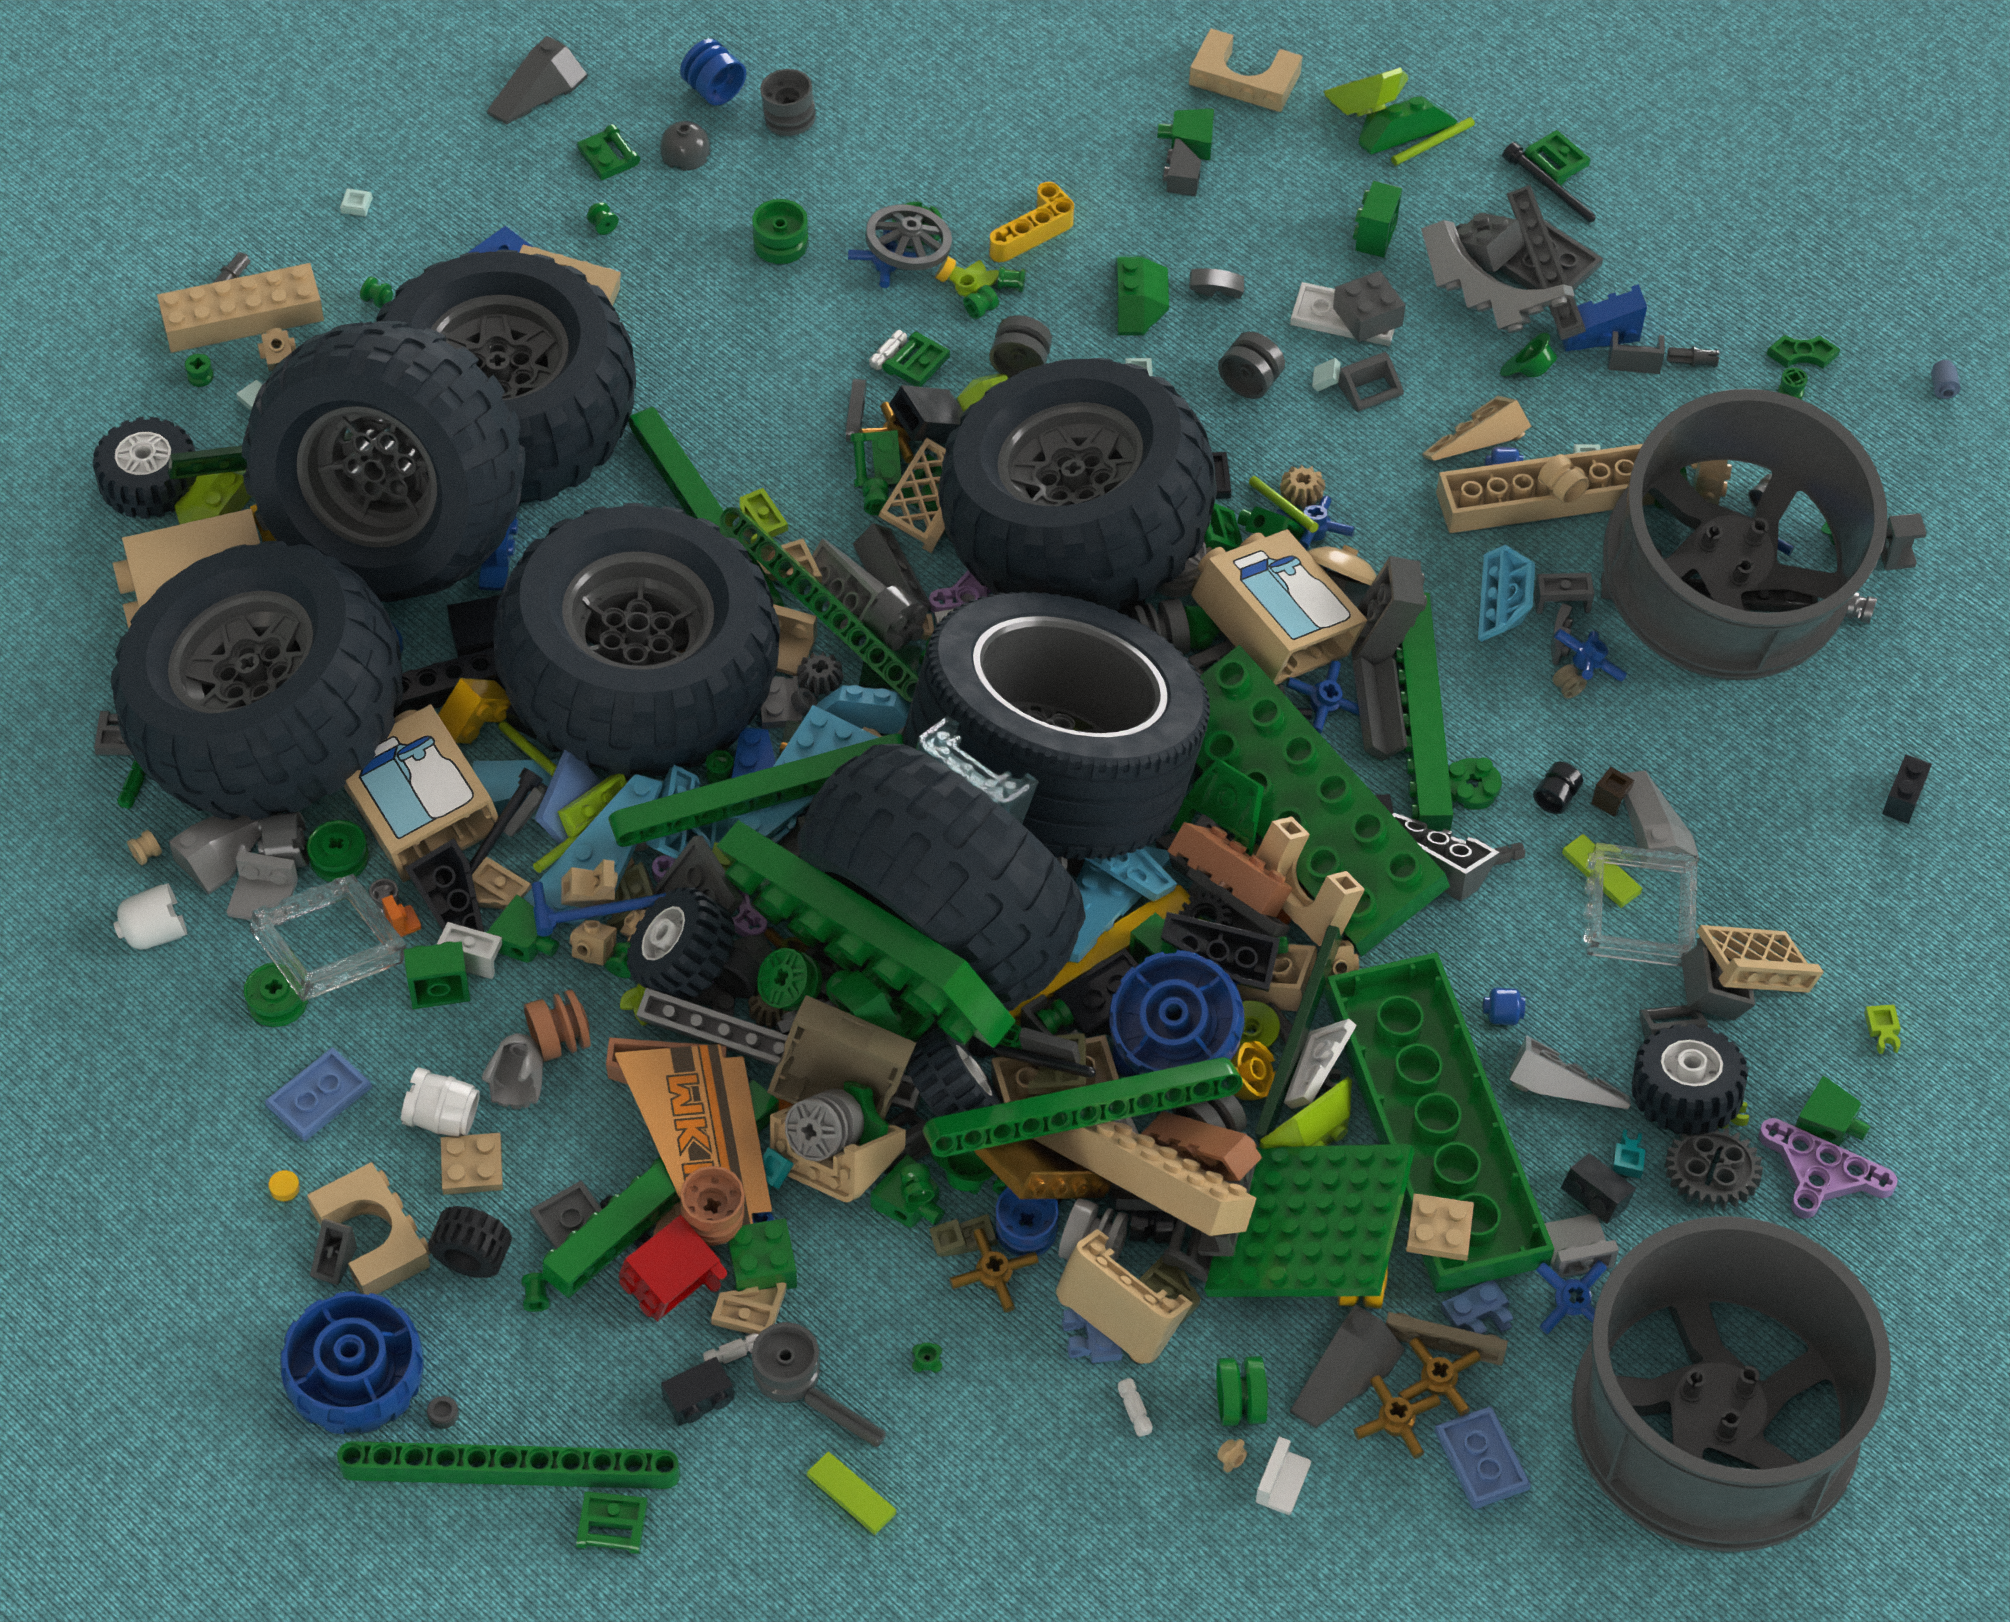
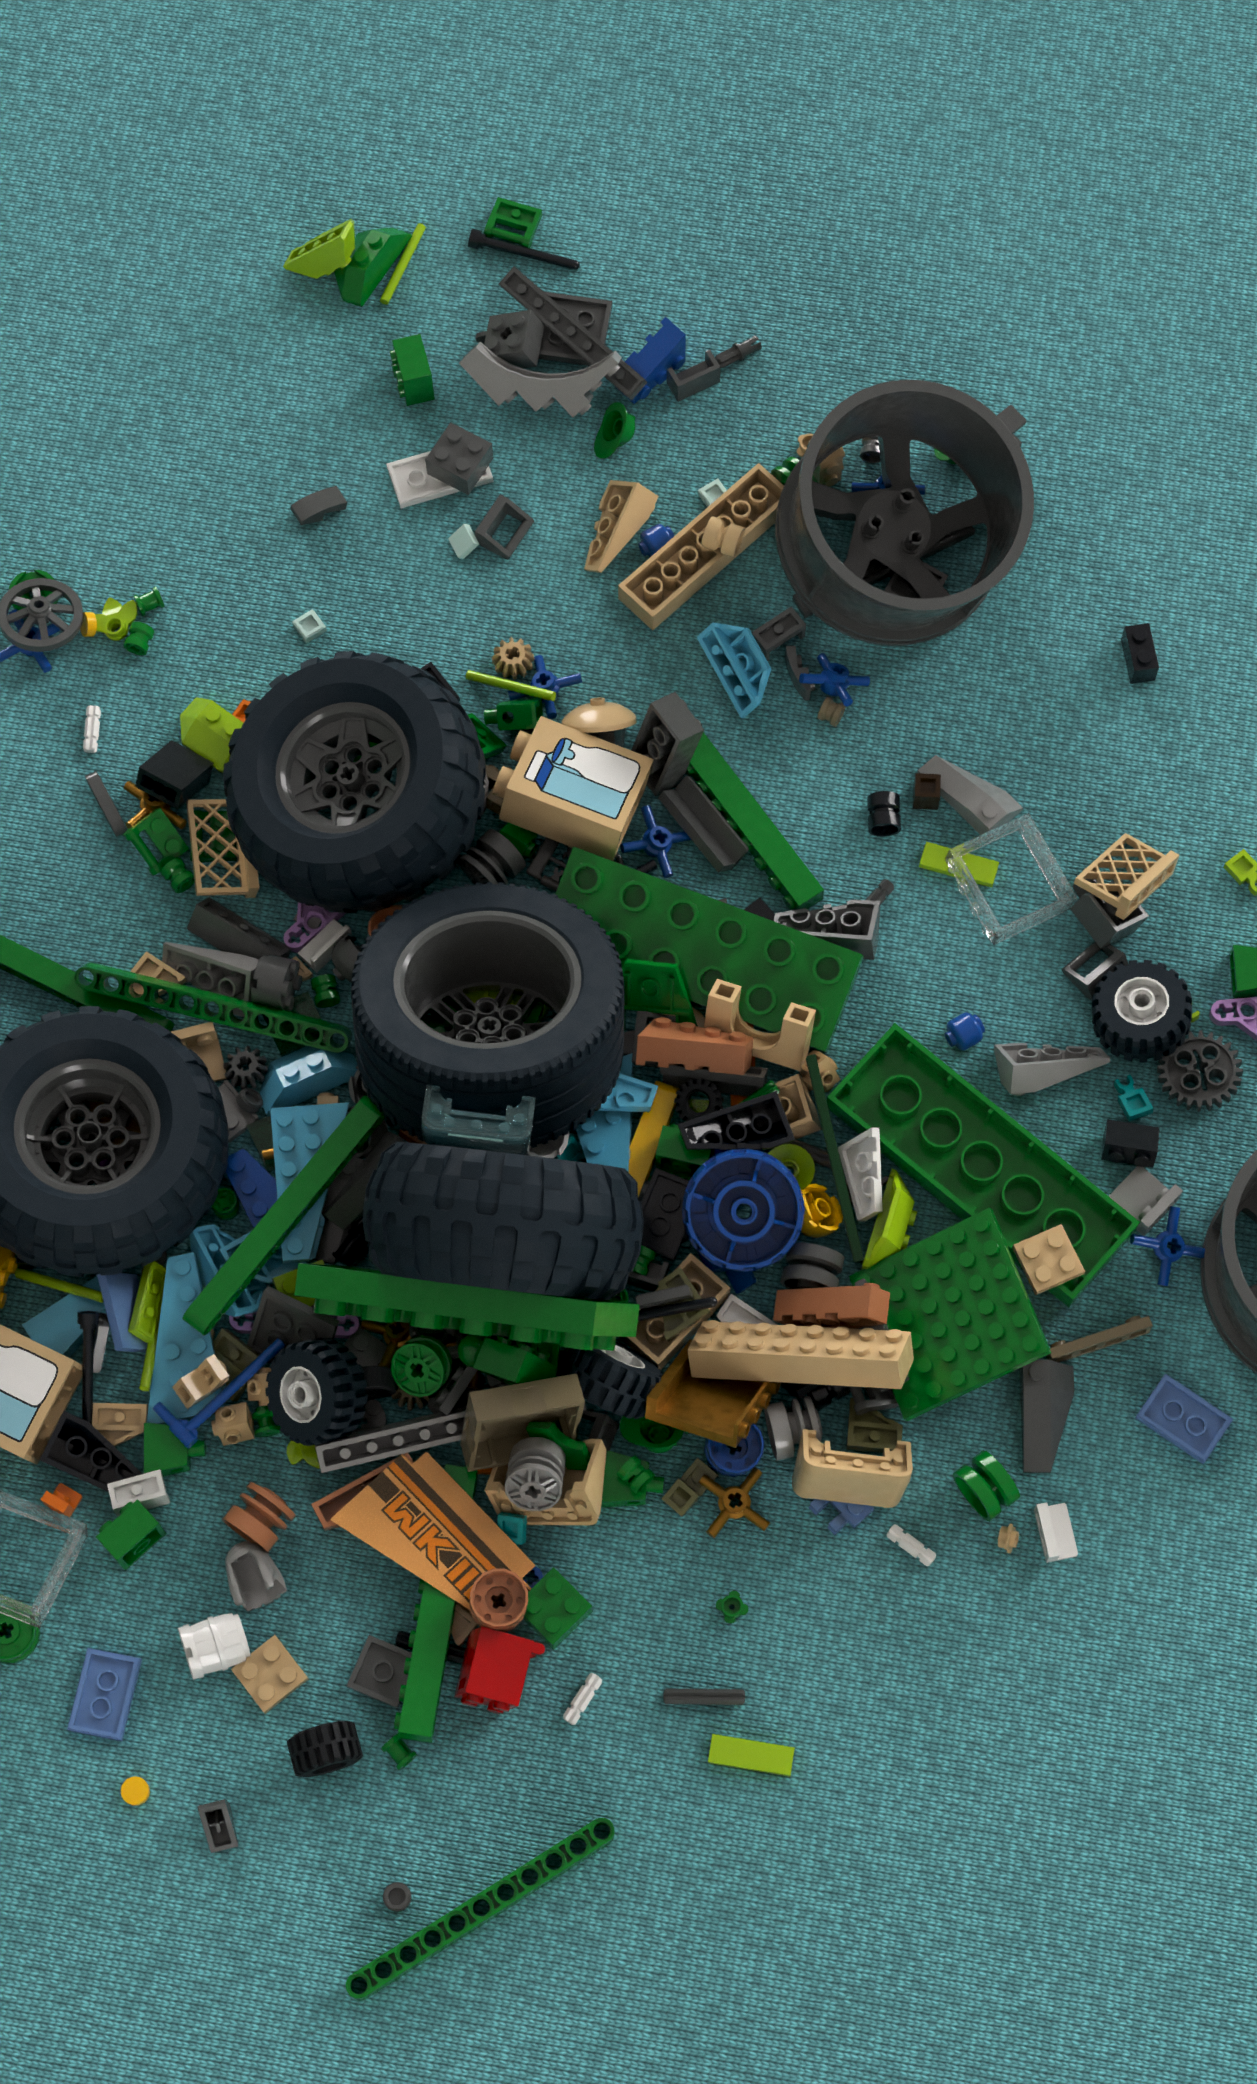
camera: 30 degrees left, 15 degrees up
(352, 1362) = (323, 1934): blue wheel -> none
(368, 1193) = (208, 1755): tan arch -> none
(382, 888) = (31, 1487): flat silver wheel -> none
(612, 1512) = (587, 1892): green plate -> none
(697, 1391) = (582, 1751): black brick -> none
(748, 1309) = (573, 1656): tan wing -> none
(764, 512) = (94, 947): lime wing -> none
(785, 1361) = (633, 1701): dark grey wheel -> none
(921, 364) = (130, 724): green plate -> none
(1019, 345) = (205, 666): dark grey wheel -> none
(1049, 219) = (129, 541): yellow beam -> none
(1082, 1107) = (728, 1338): green beam -> none
(1140, 294) = (262, 551): green wedge -> none
(1184, 170) = (220, 411): dark grey slope -> none
(1193, 128) = (202, 372): green torso -> none
(1251, 365) = (402, 571): dark grey wheel -> none
(1265, 90) = (236, 294): tan arch -> none
(1397, 1416) = (1098, 1421): pearl gold bar -> none
(1441, 1367) = (1124, 1374): pearl gold bar -> none
(1476, 1304) = (1100, 1297): medium blue plate -> none
(1480, 771) = (816, 833): green plate -> none
(1793, 351) = (810, 300): green tile -> none
(1793, 382) = (831, 334): green wheel -> none
(1945, 379) = (943, 259): sand blue brick -> none

